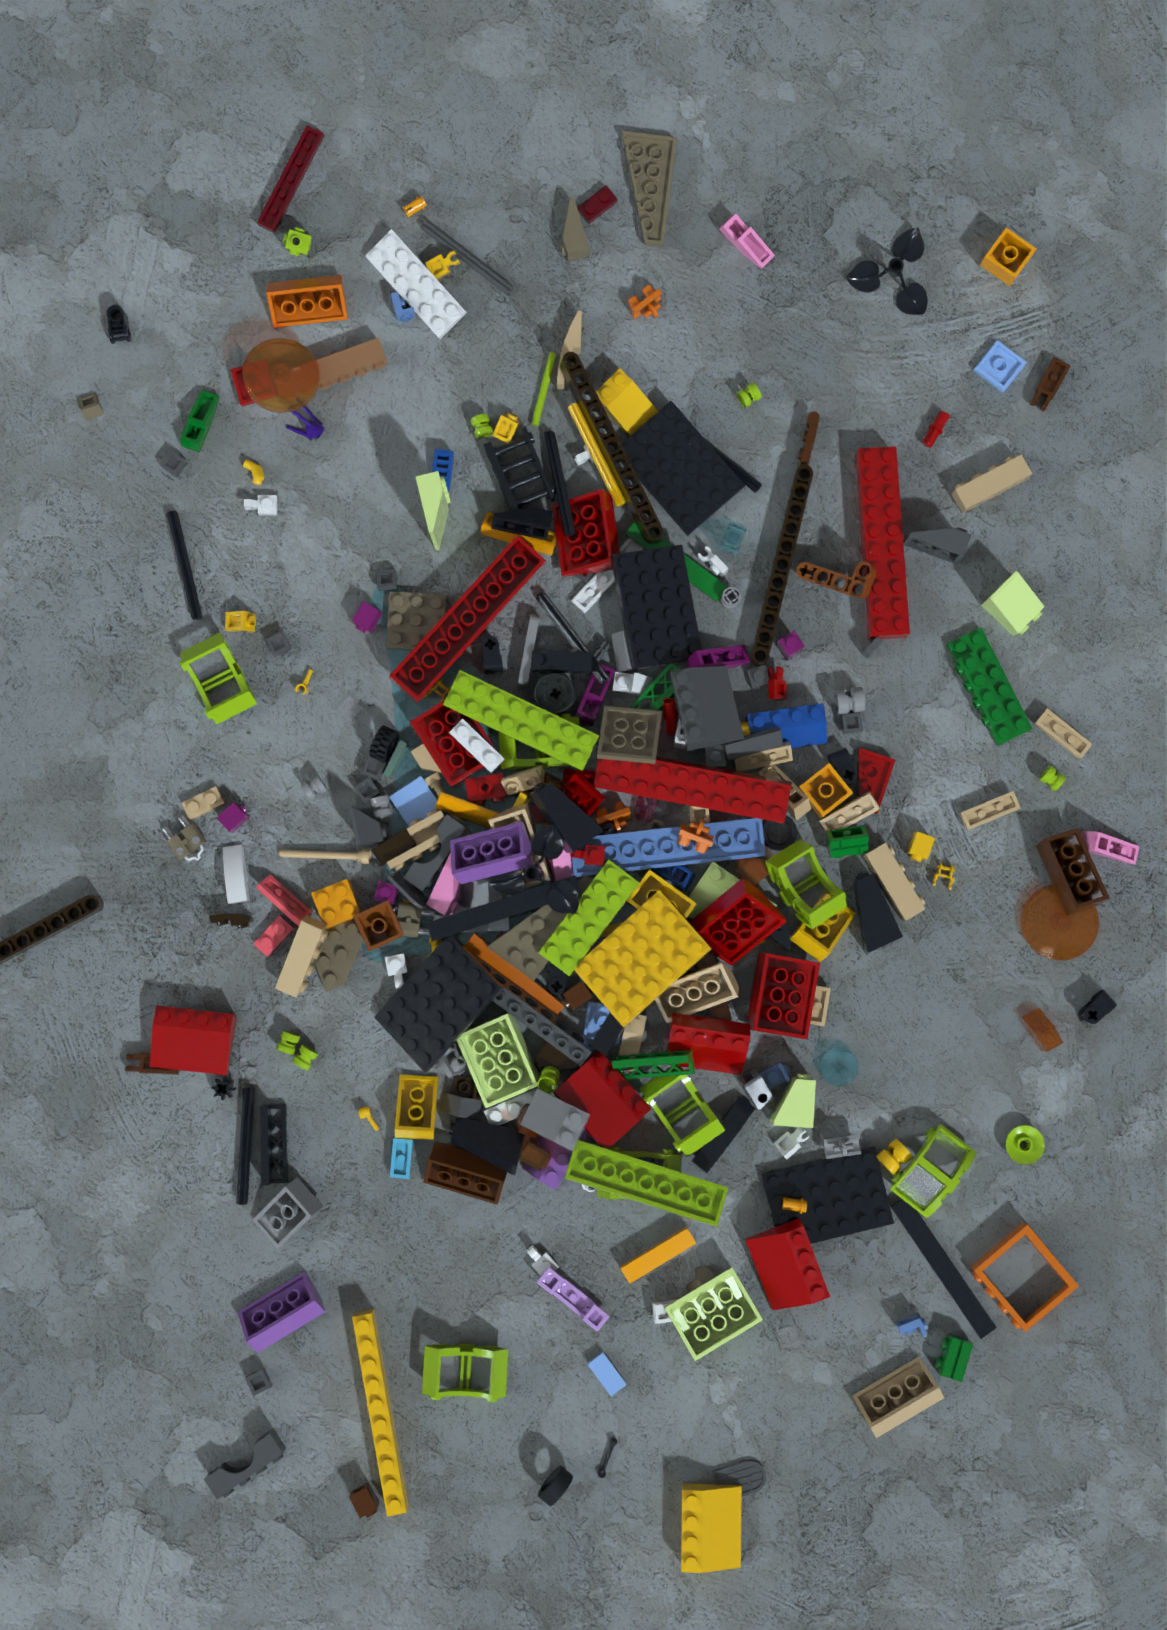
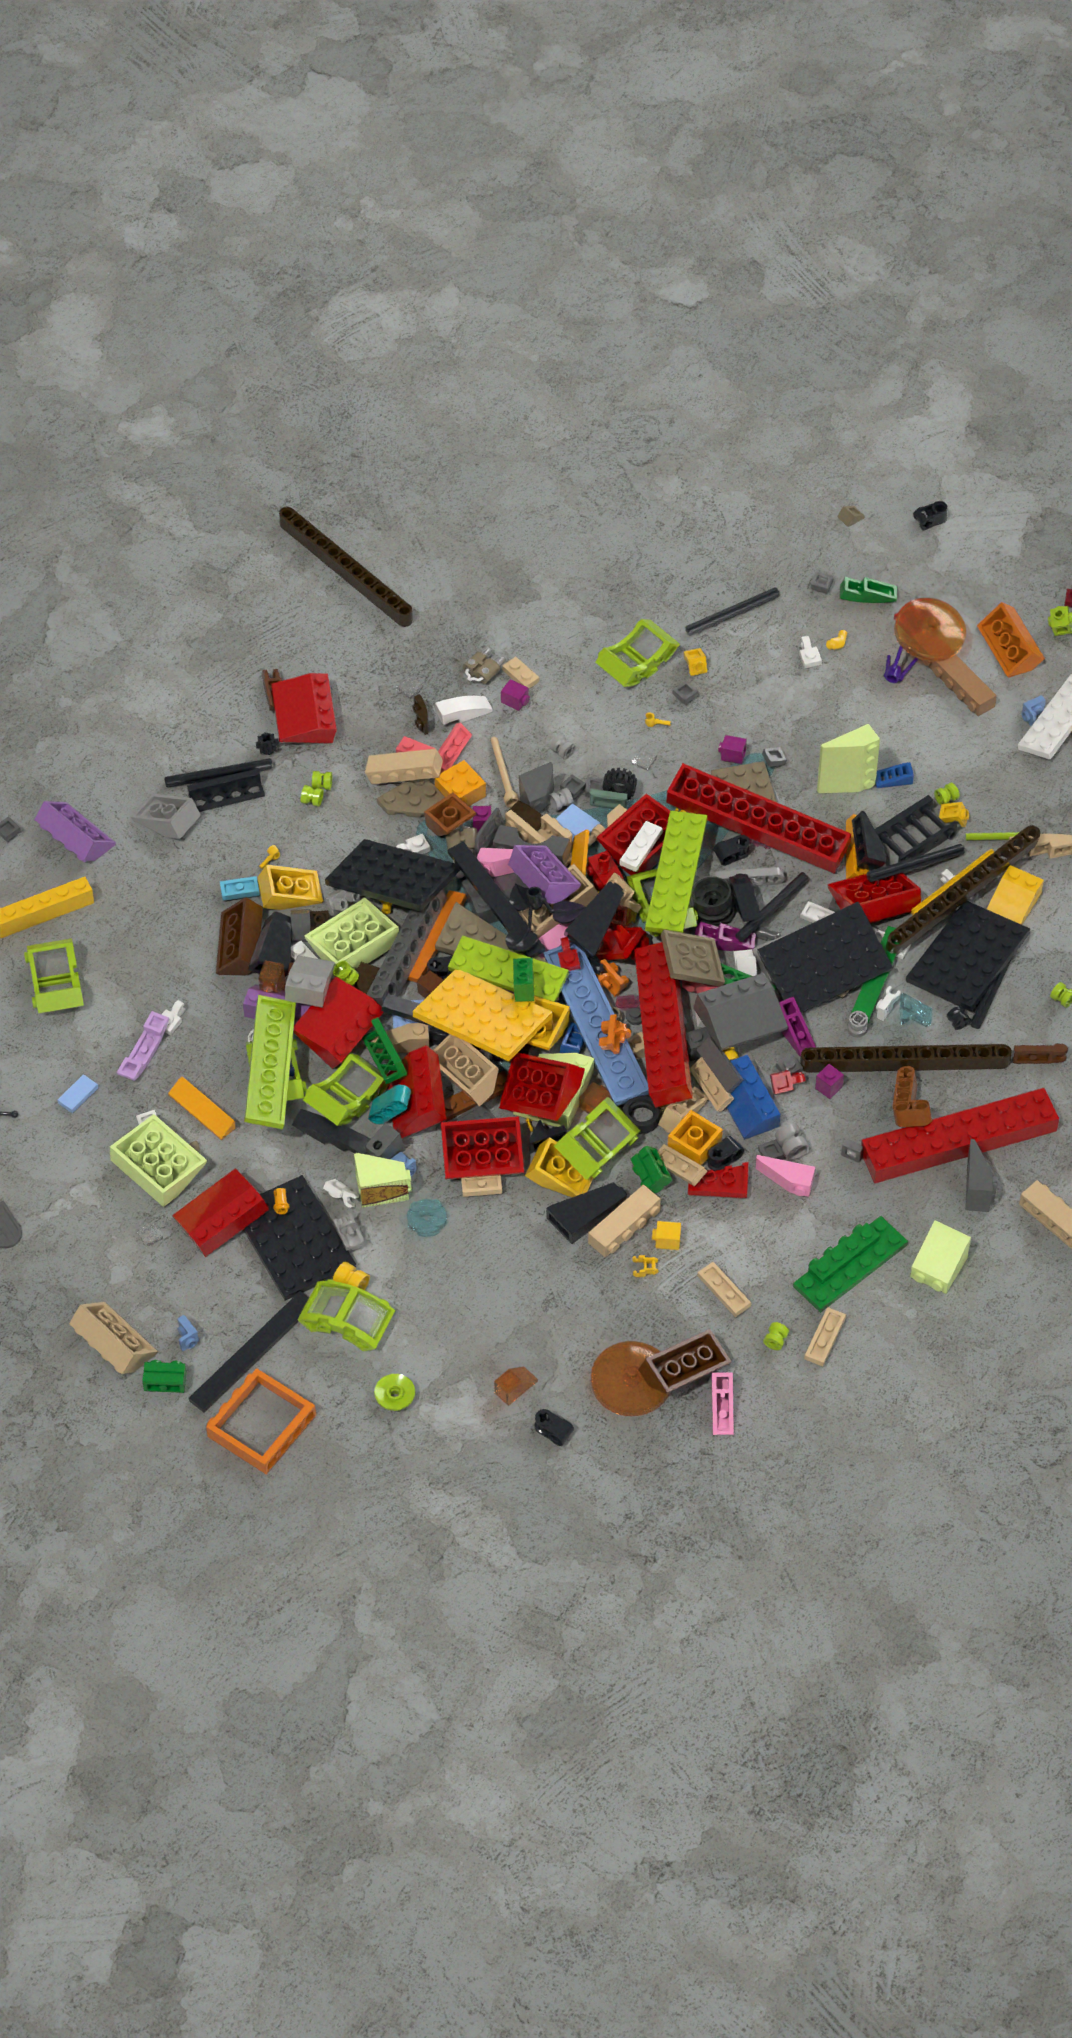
camera: 75 degrees right, 30 degrees down
(620, 909) = (523, 979): none -> green brick
(715, 1073) = (389, 1104): none -> teal beam
(748, 501) = (958, 1017): none -> black wheel
(887, 709) = (791, 1176): none -> bright pink slope

